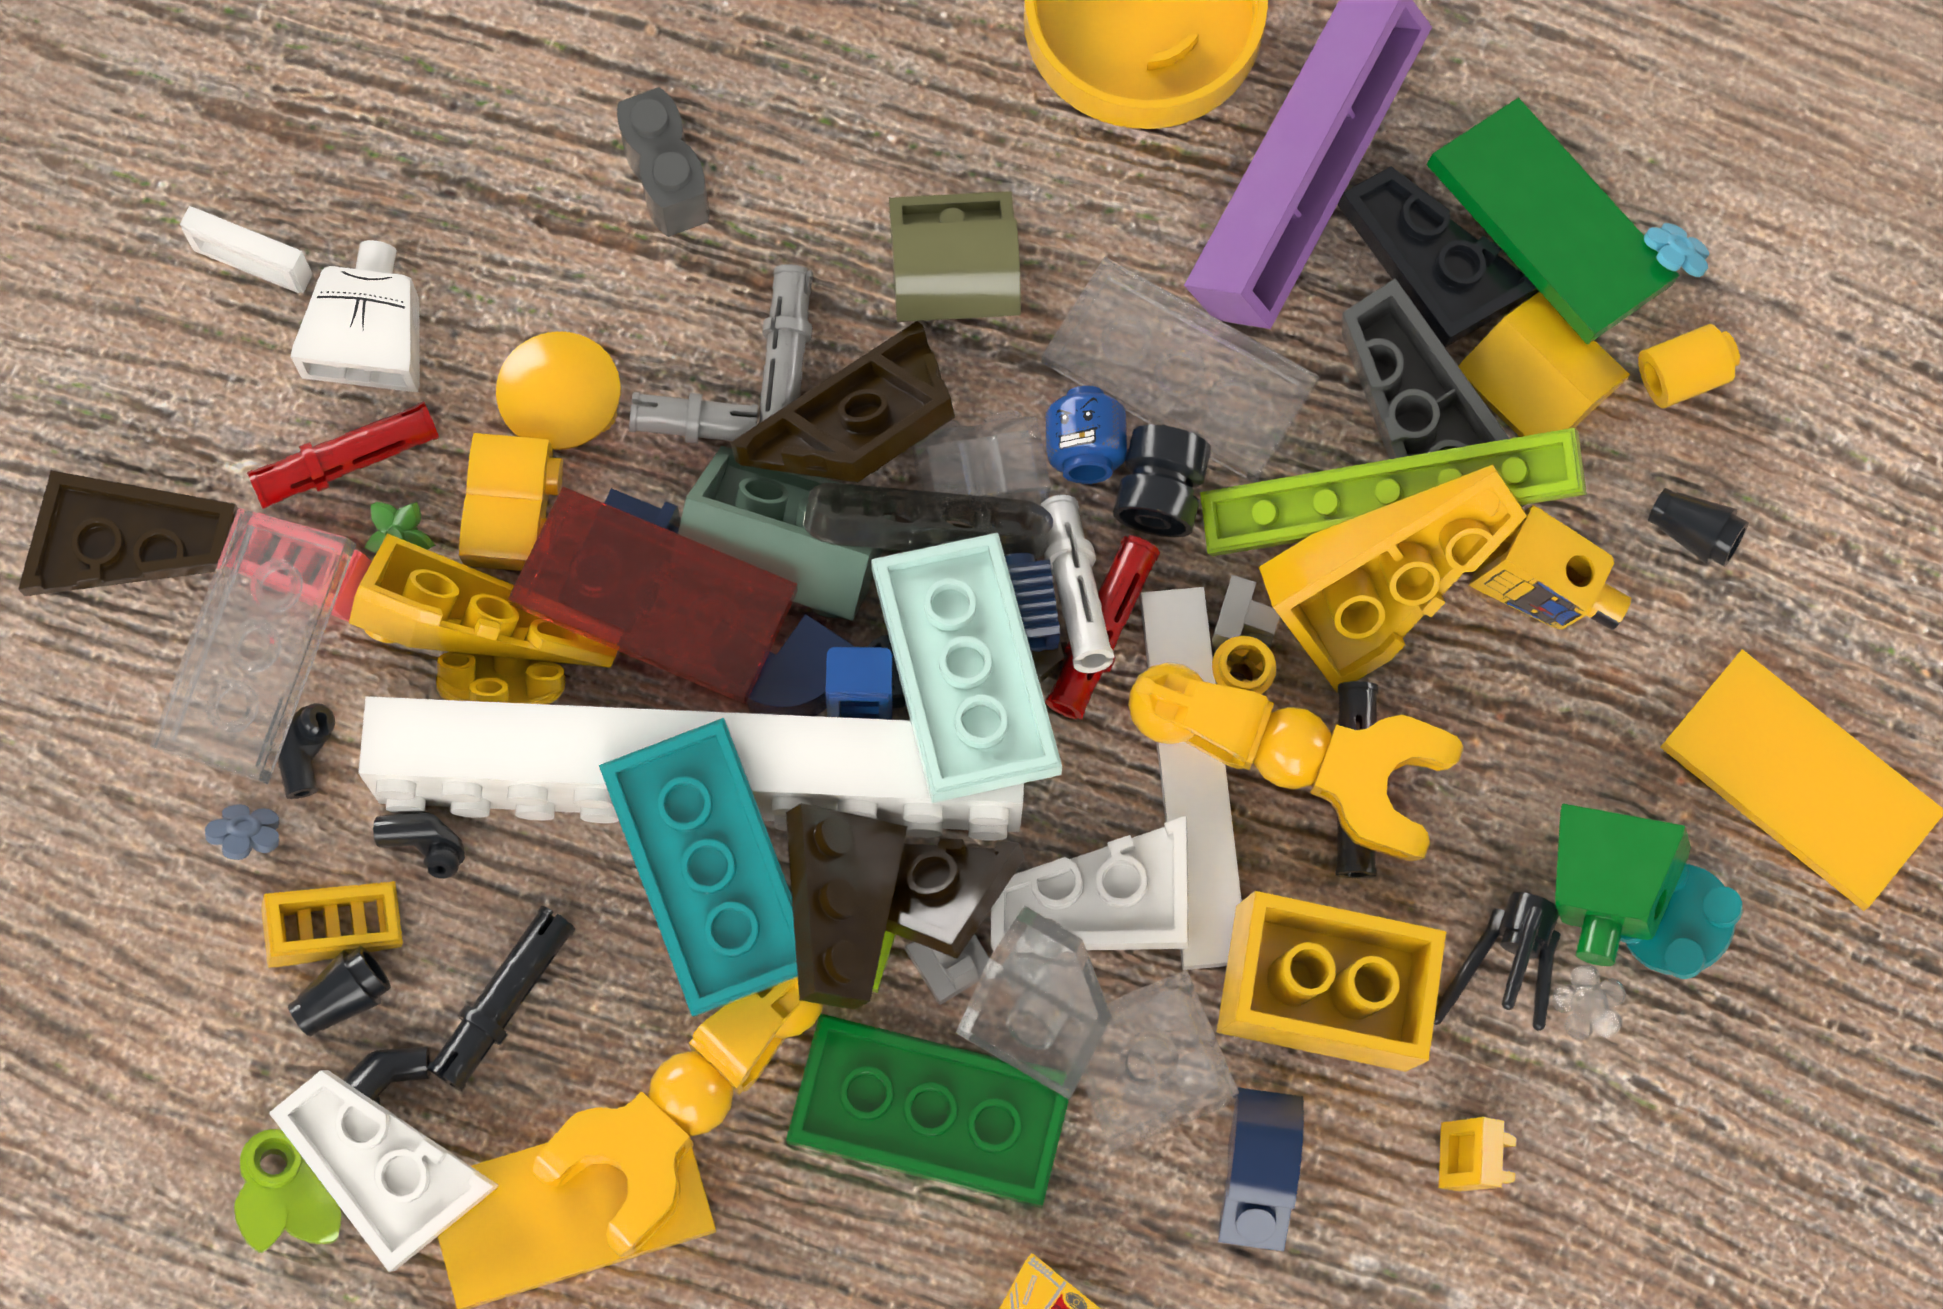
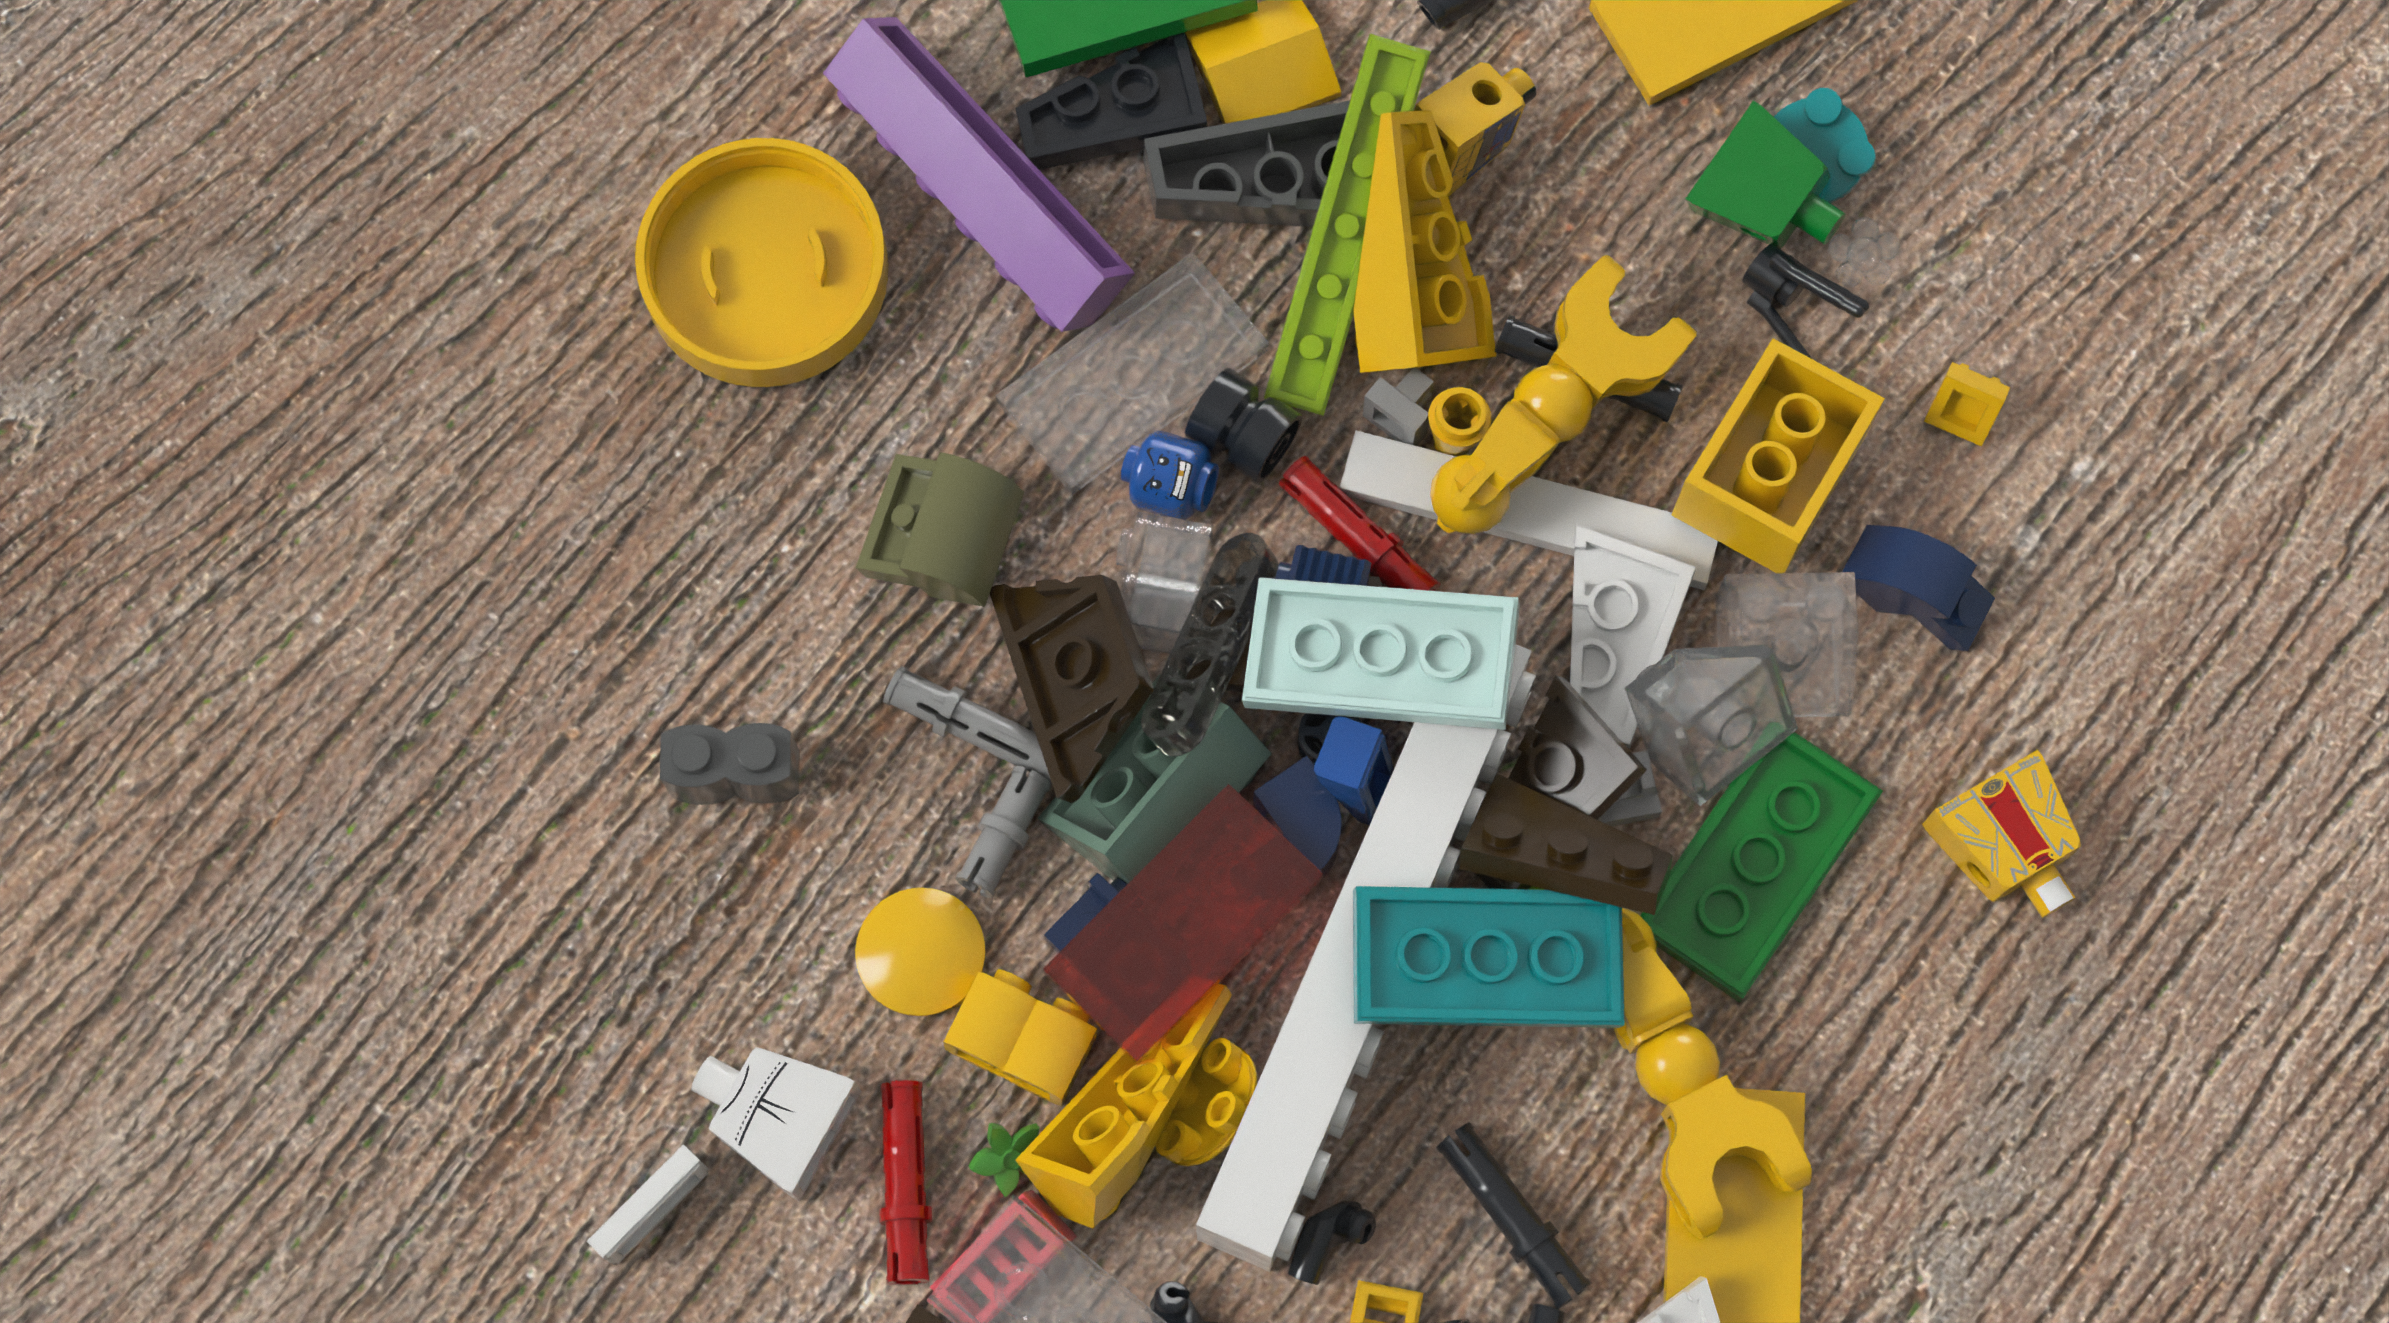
camera: 65 degrees left, 0 degrees up
(1072, 566) = (1285, 530): white pin -> none

